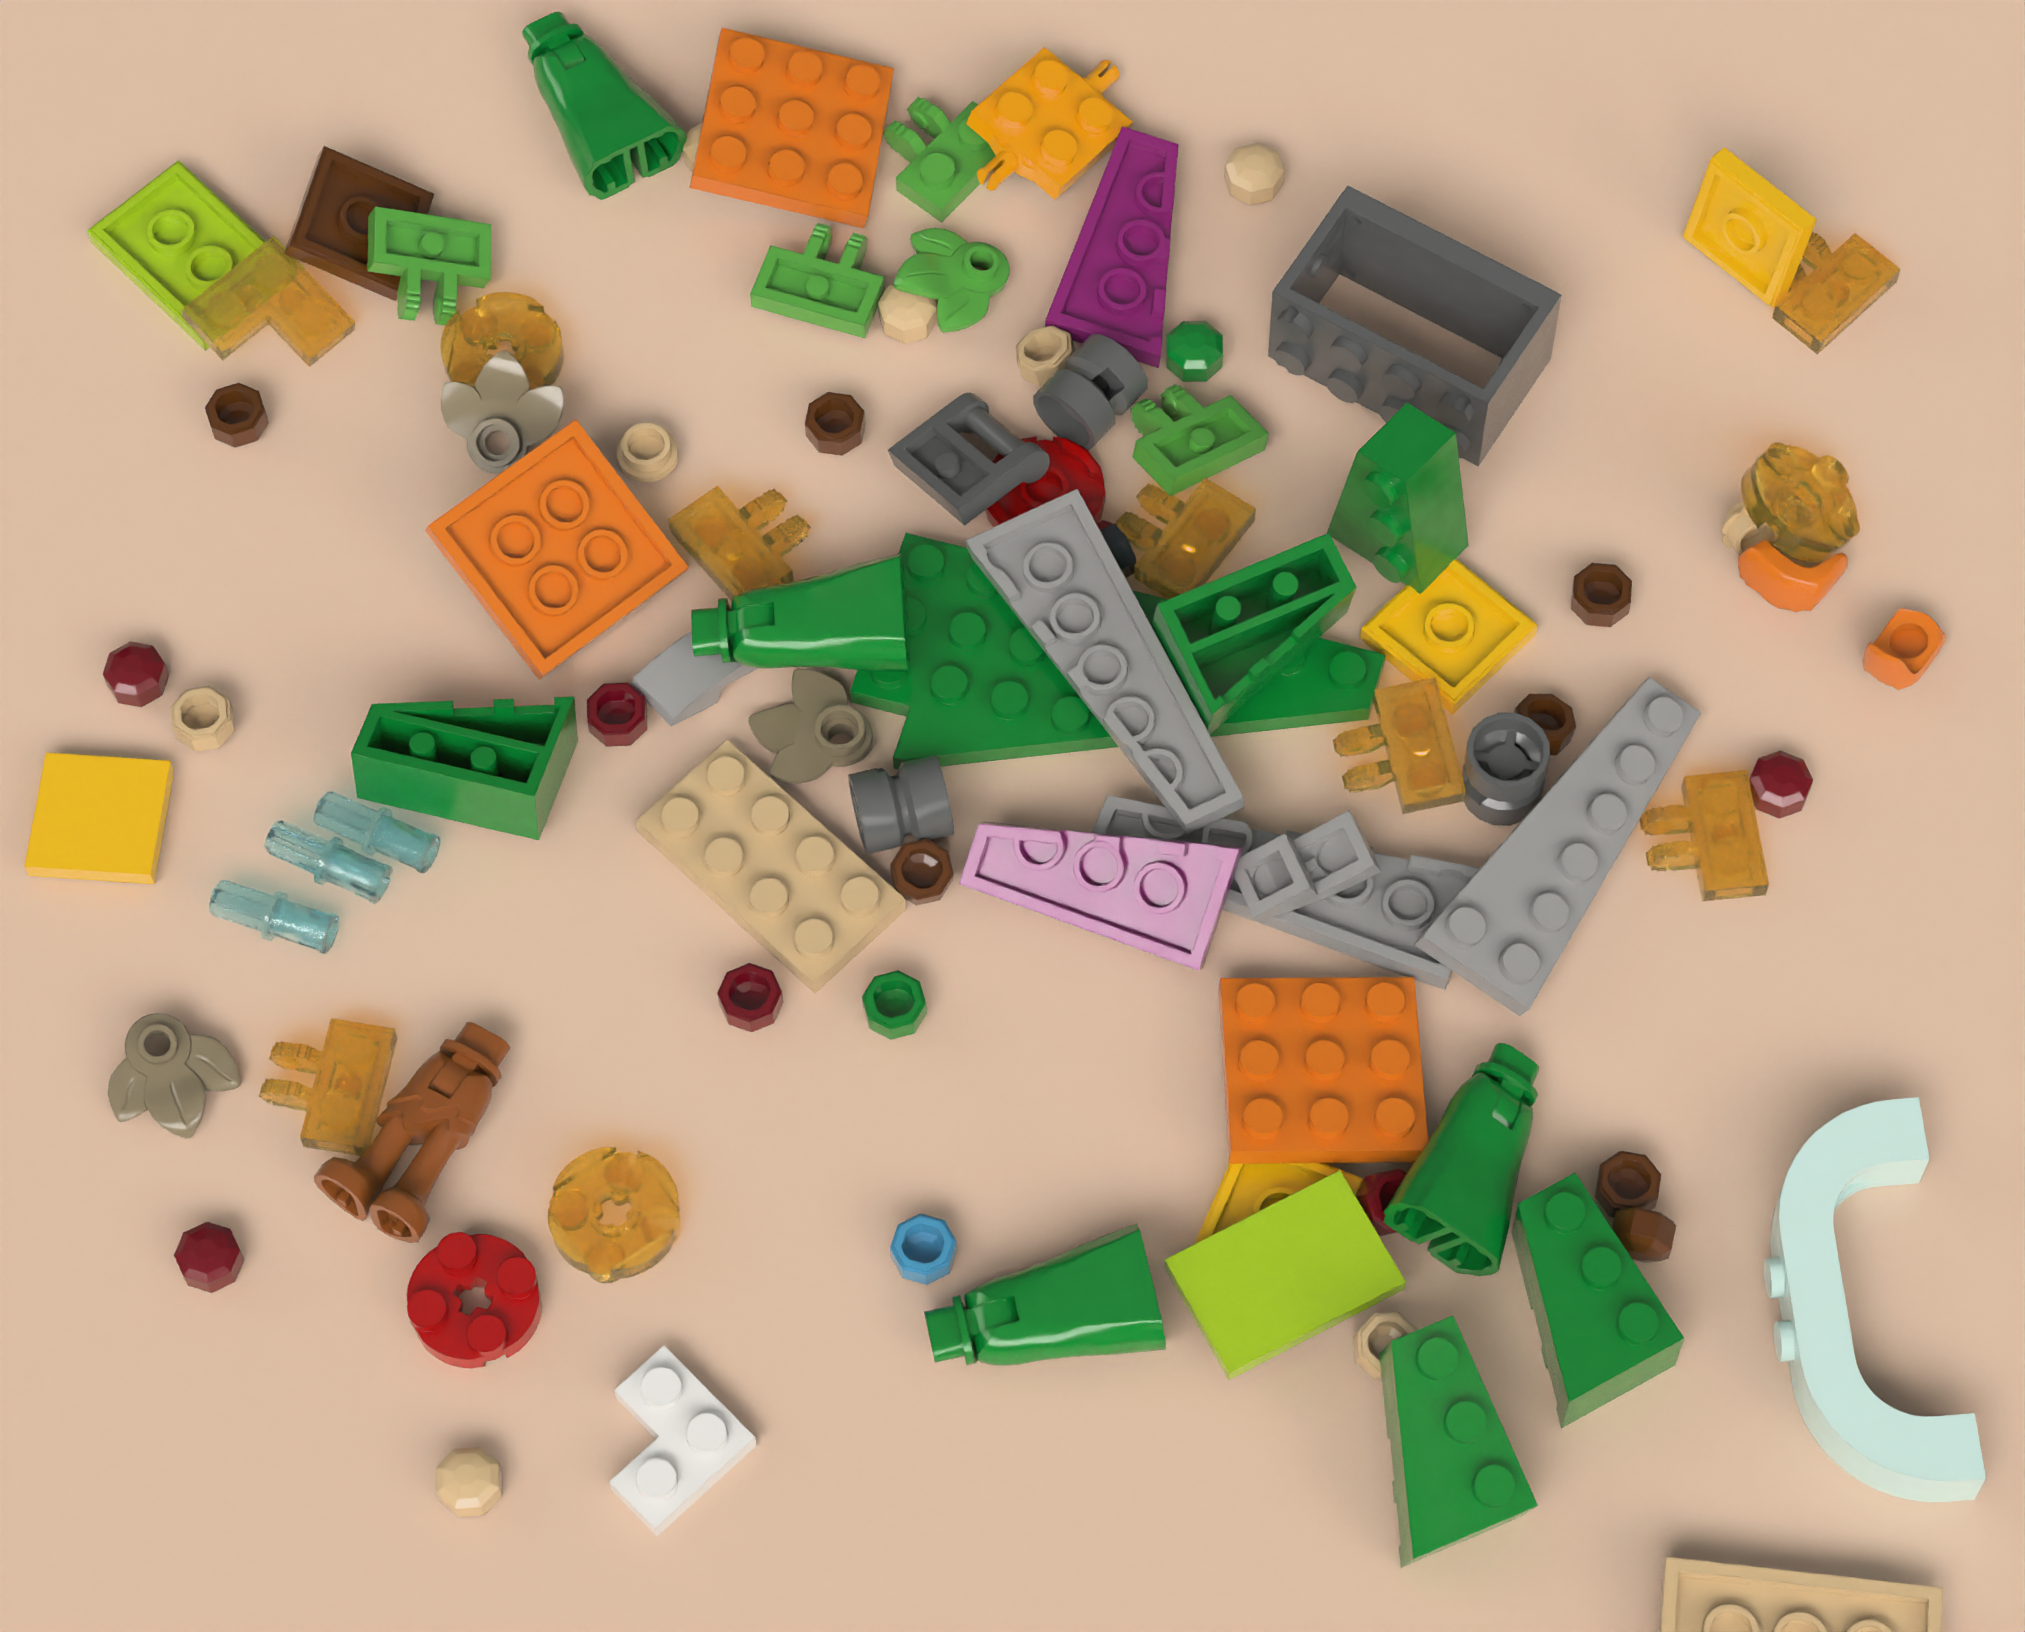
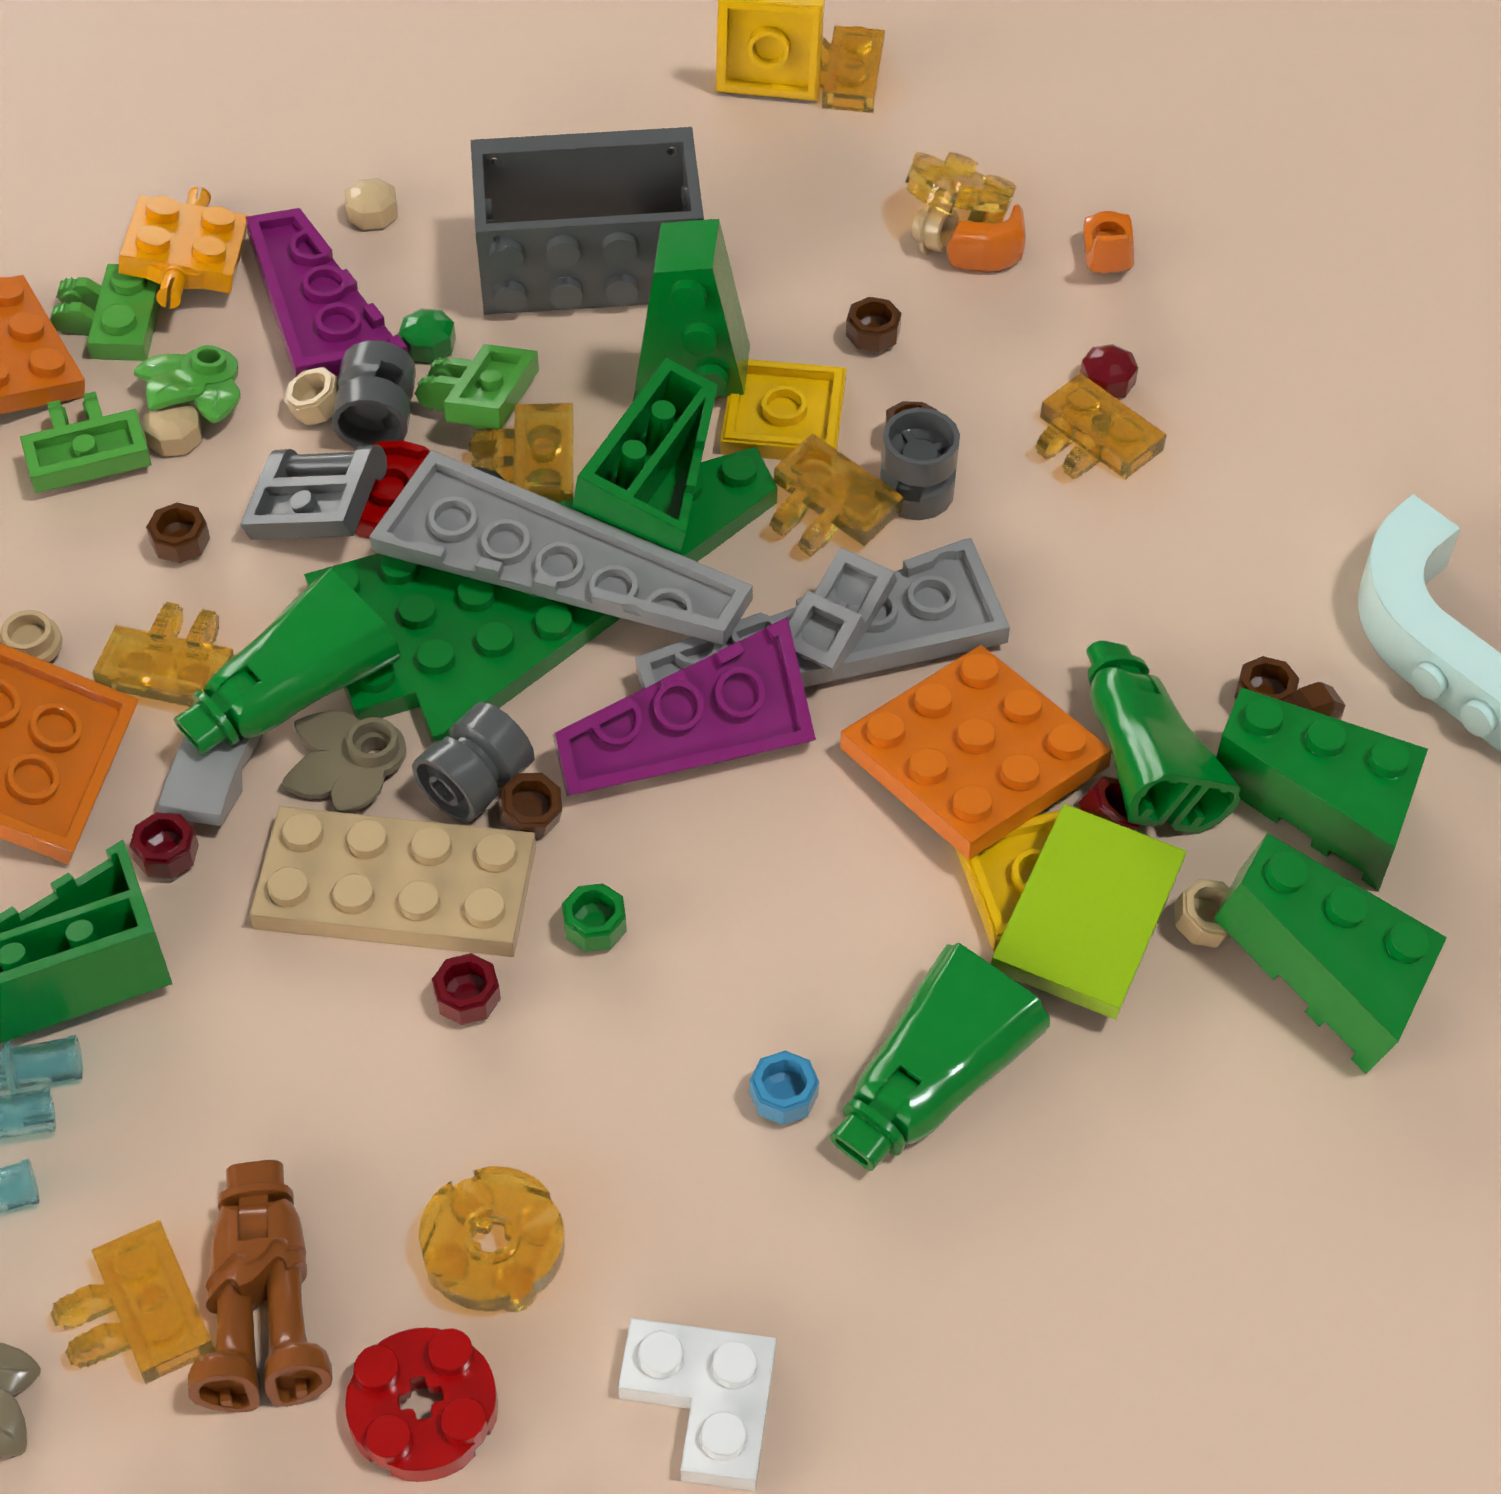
camera: 40 degrees left, 10 degrees down
(1539, 882) = (1014, 531): light grey wing -> none

